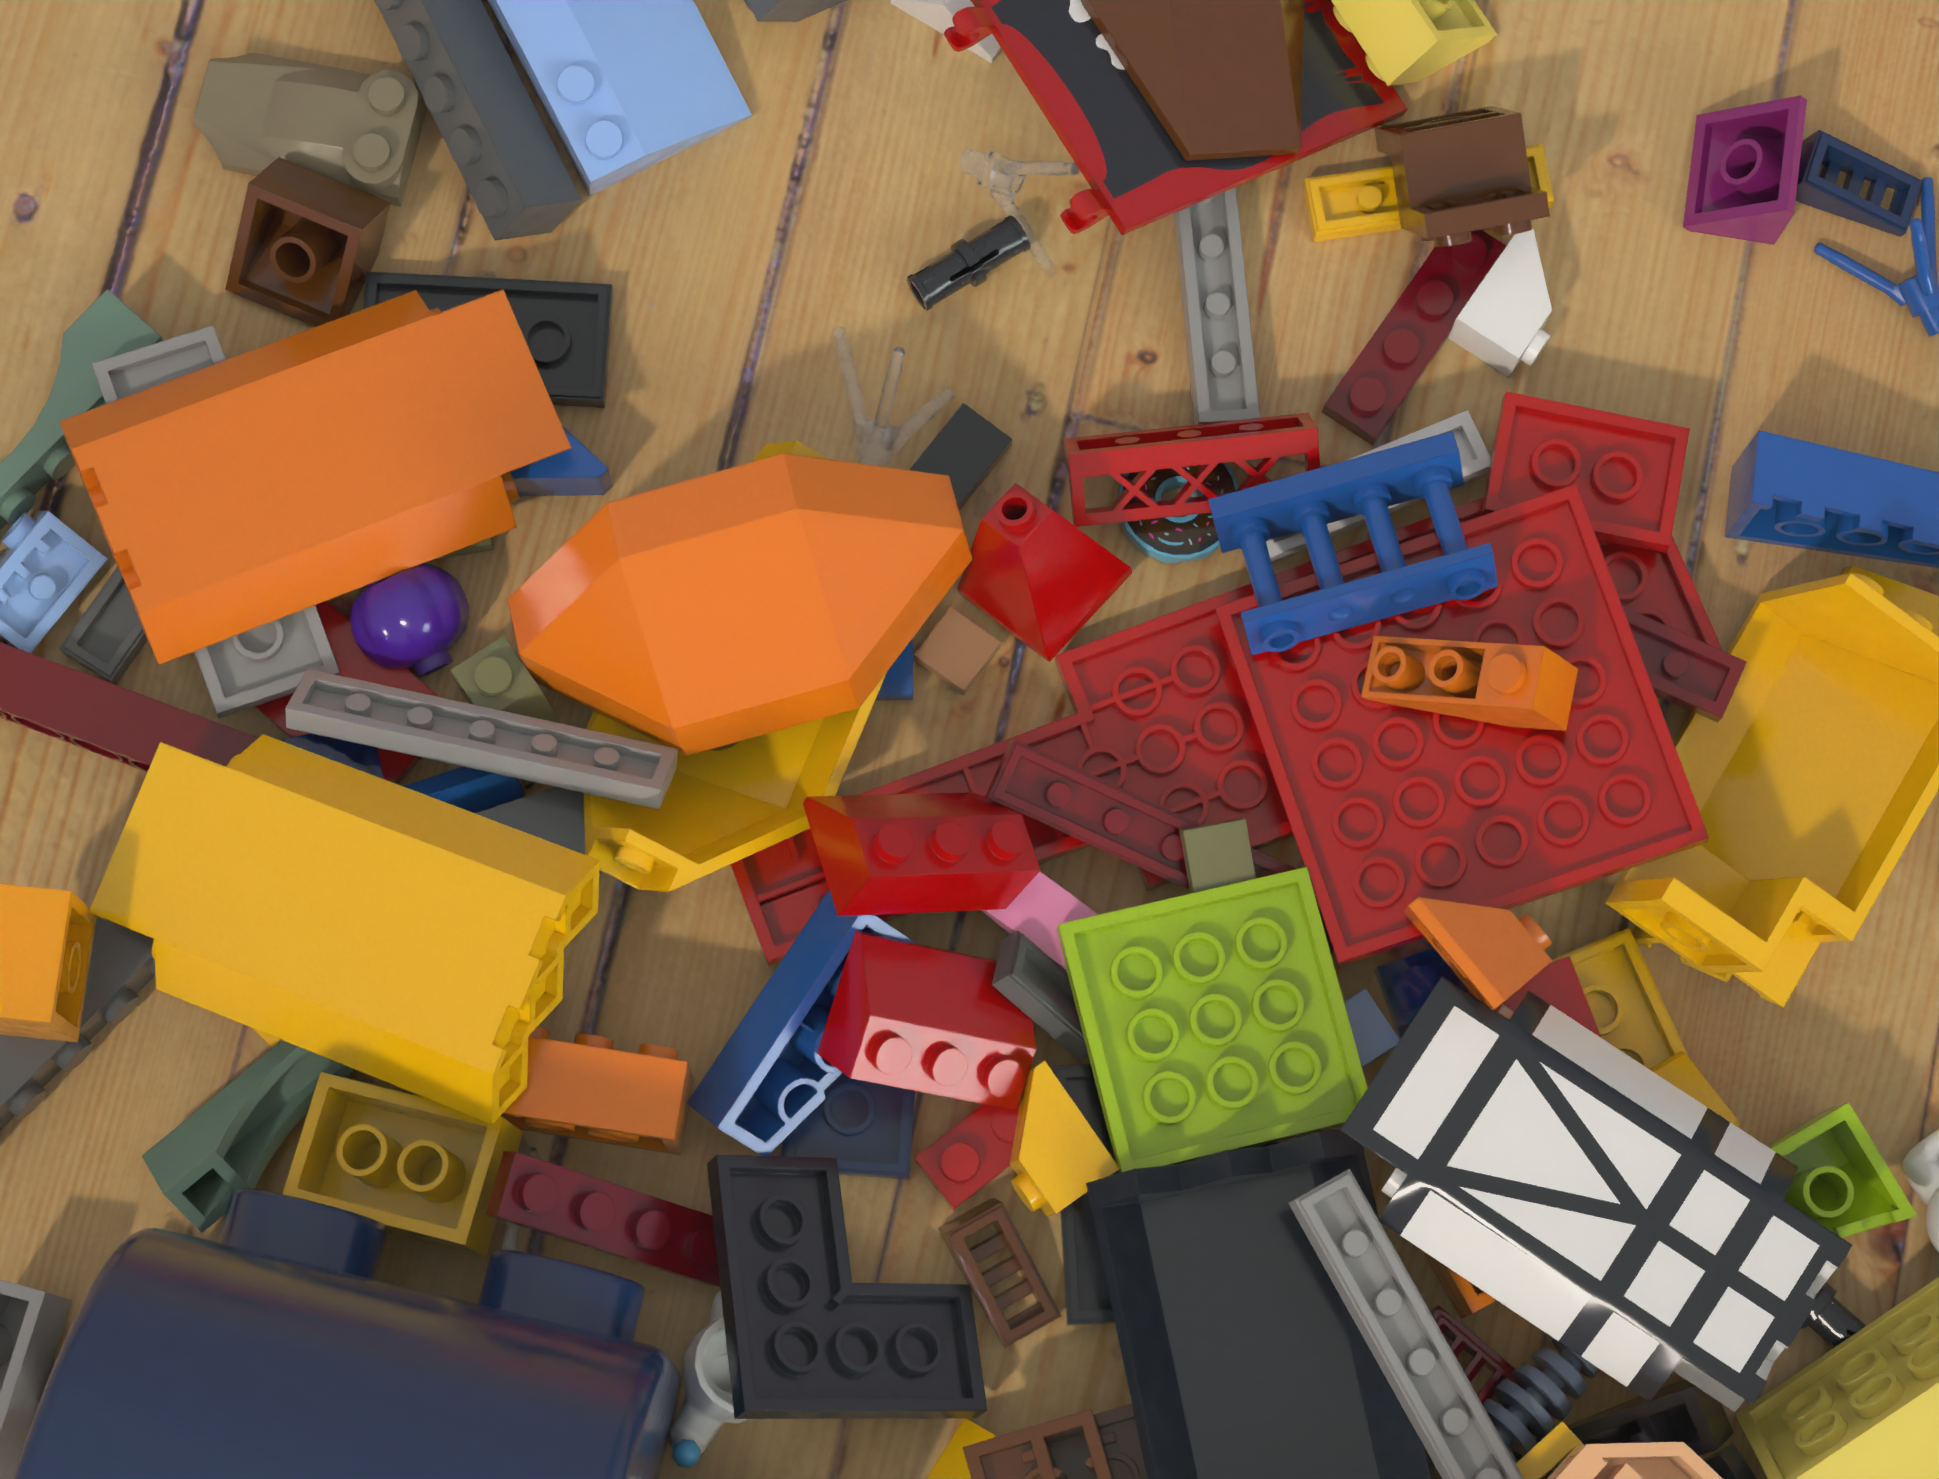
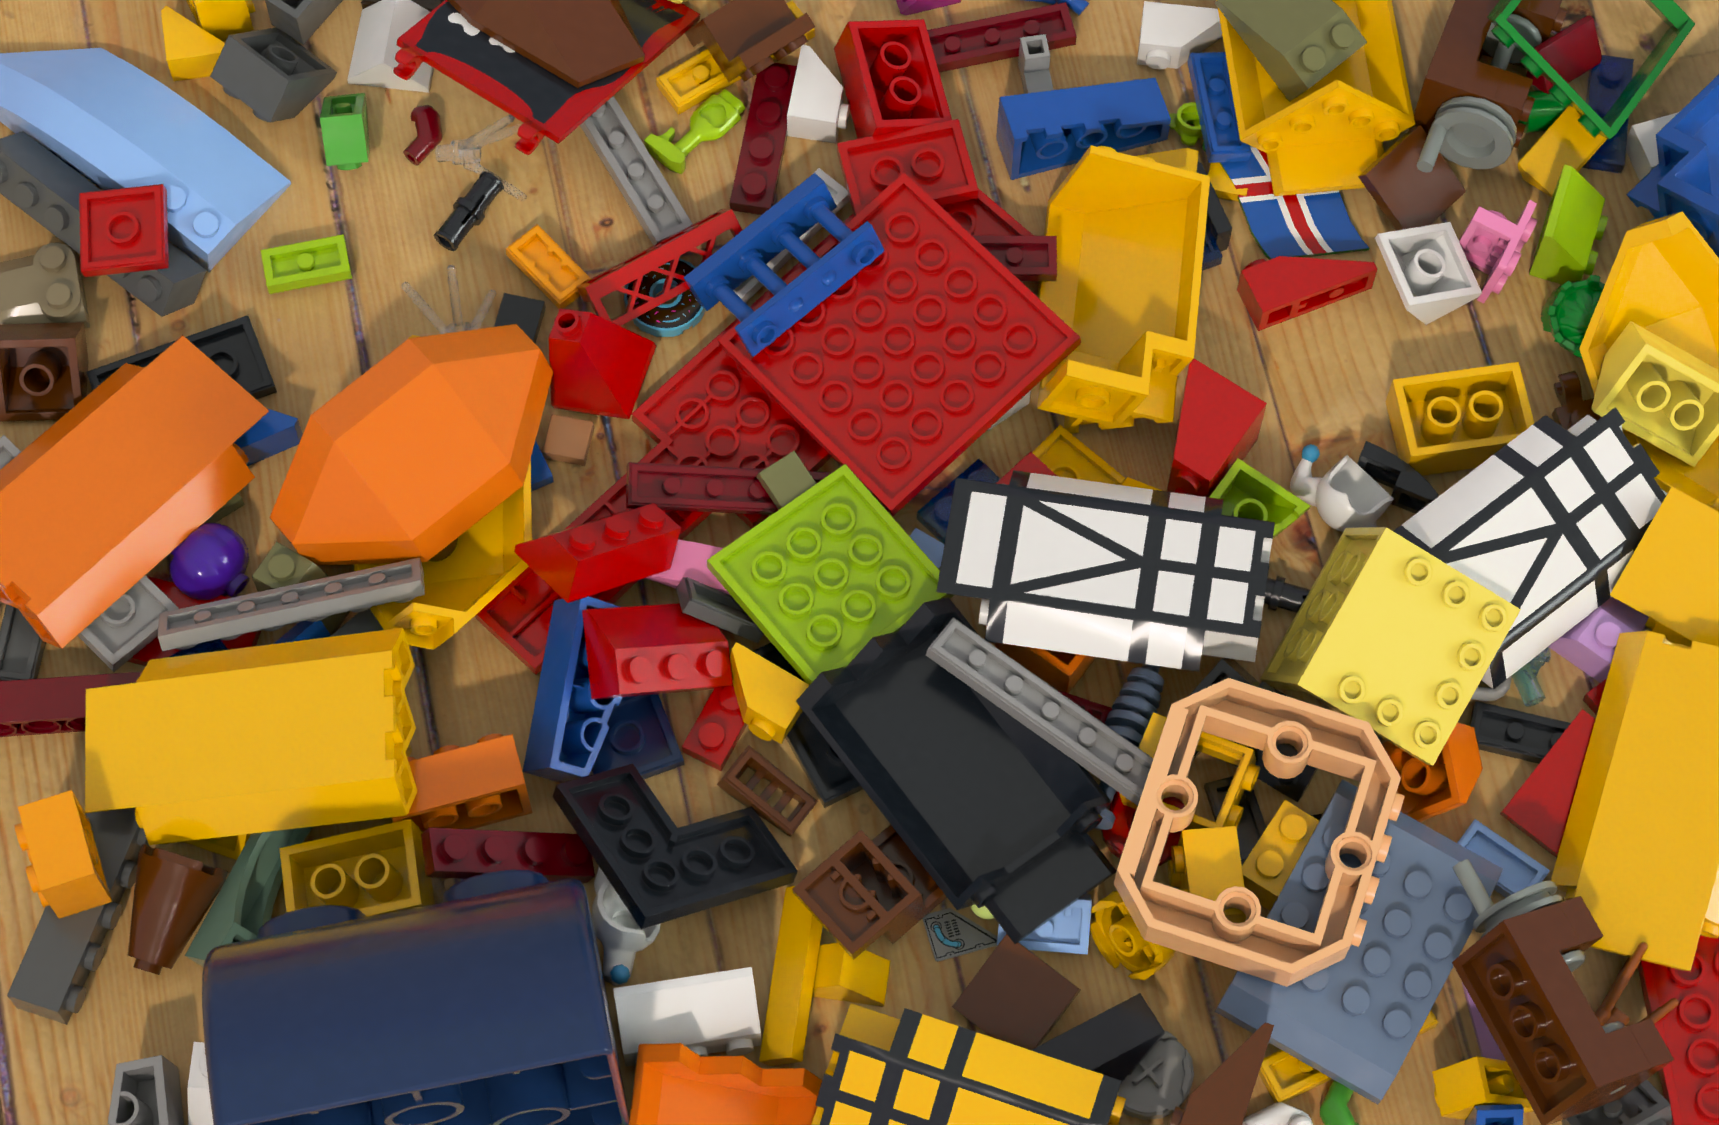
camera: 20 degrees left, 10 degrees down
(151, 1076) = (168, 905): none -> reddish brown cone
(489, 104) = (123, 230): none -> red tile
(719, 245) = (306, 264): none -> lime plate
(854, 73) = (345, 131): none -> bright green slope
(964, 123) = (428, 133): none -> dark red arm
(1038, 390) = (547, 266): none -> light orange plate
(1346, 275) = (707, 123): none -> lime piece
(1473, 680) = (895, 307): orange slope -> none
(1483, 945) = (968, 452): orange slope -> none
(1624, 325) = (890, 76): none -> red slope
(1792, 322) = (1000, 36): none -> dark red plate
(1823, 1045) = (1213, 430): none -> red slope
(1829, 393) = (1034, 64): none -> light grey piece

